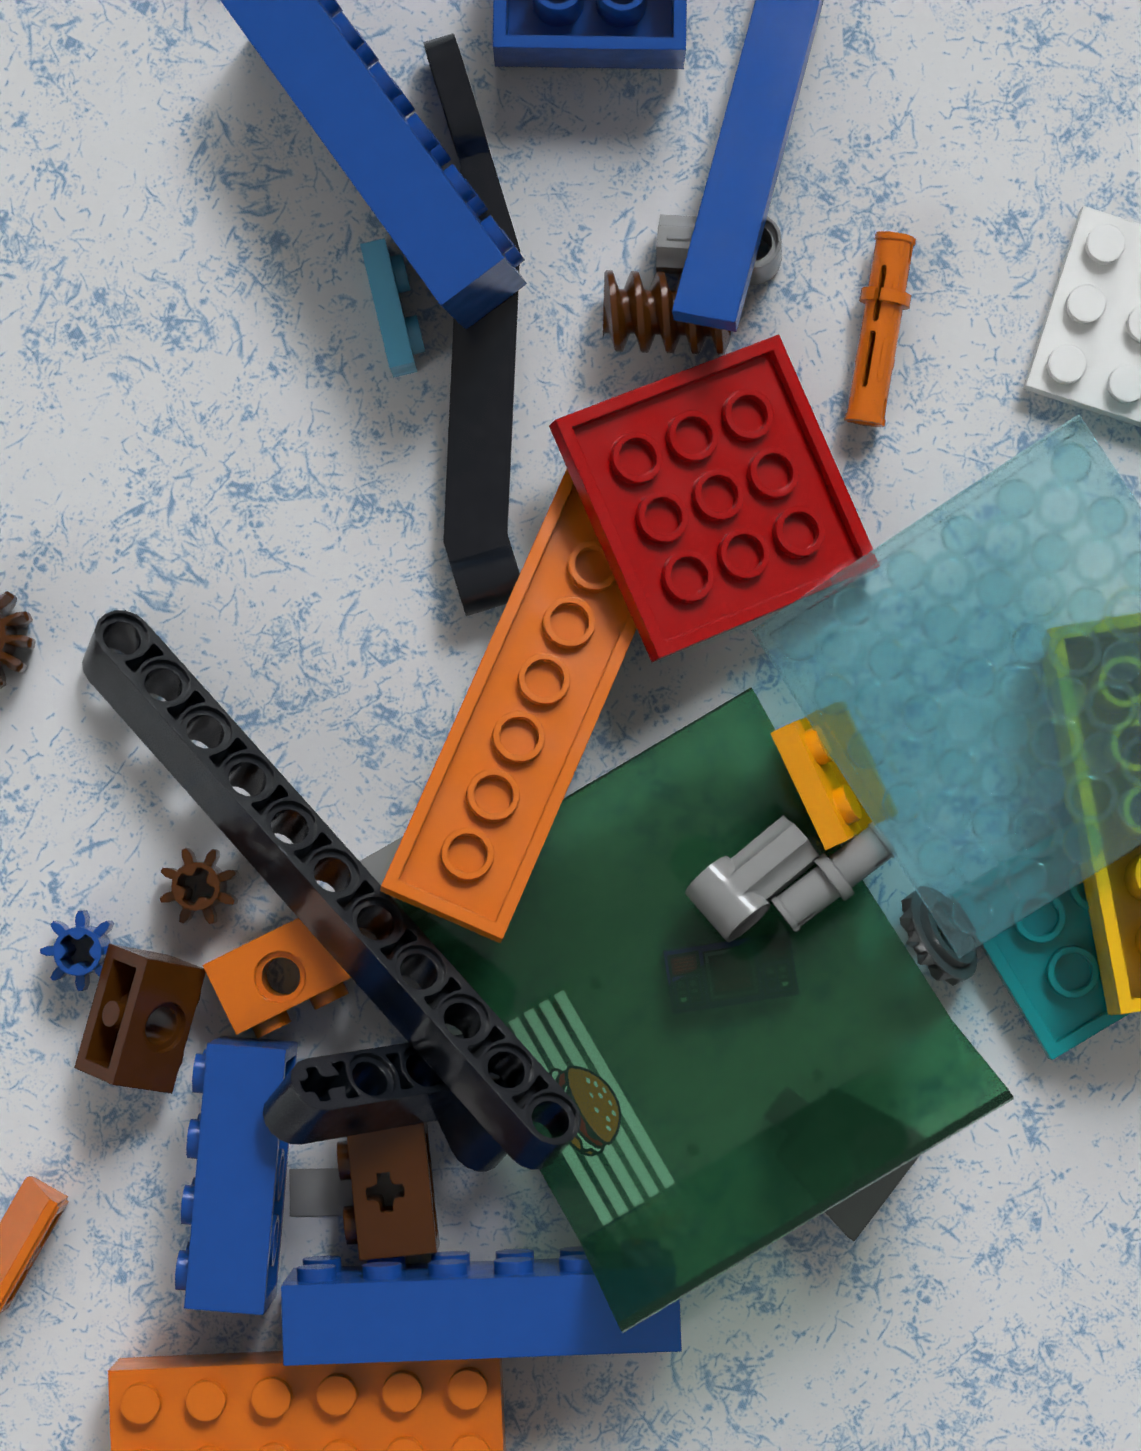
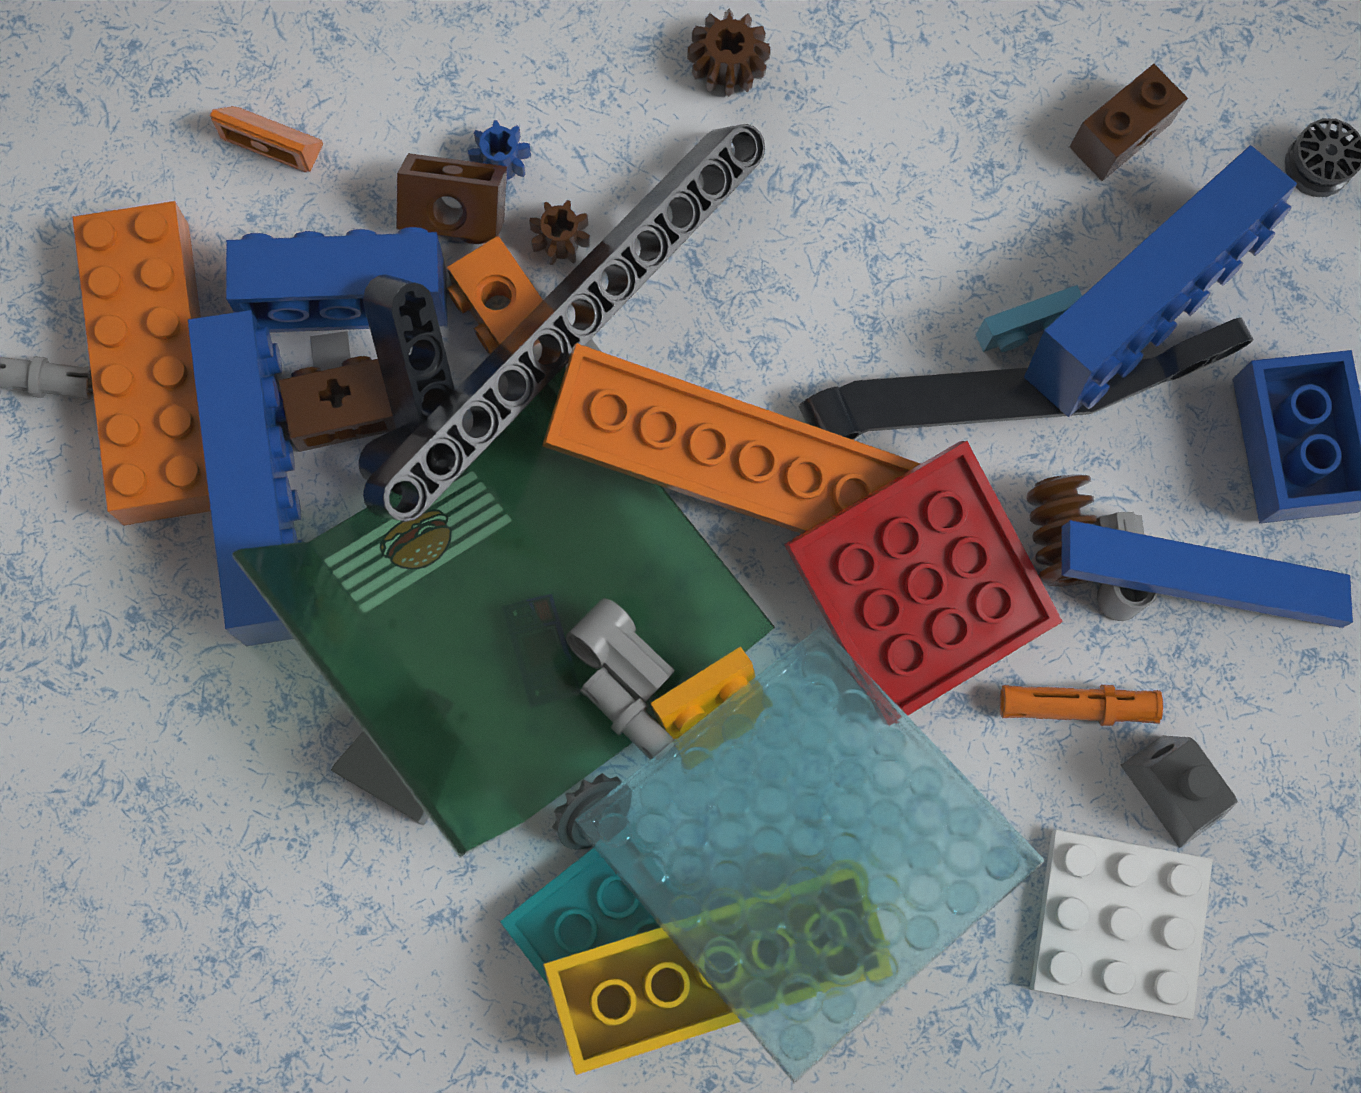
camera: 70 degrees right, 10 degrees down
(143, 137) = (1128, 122): none -> reddish brown brick
(996, 231) = (1180, 786): none -> dark grey torso

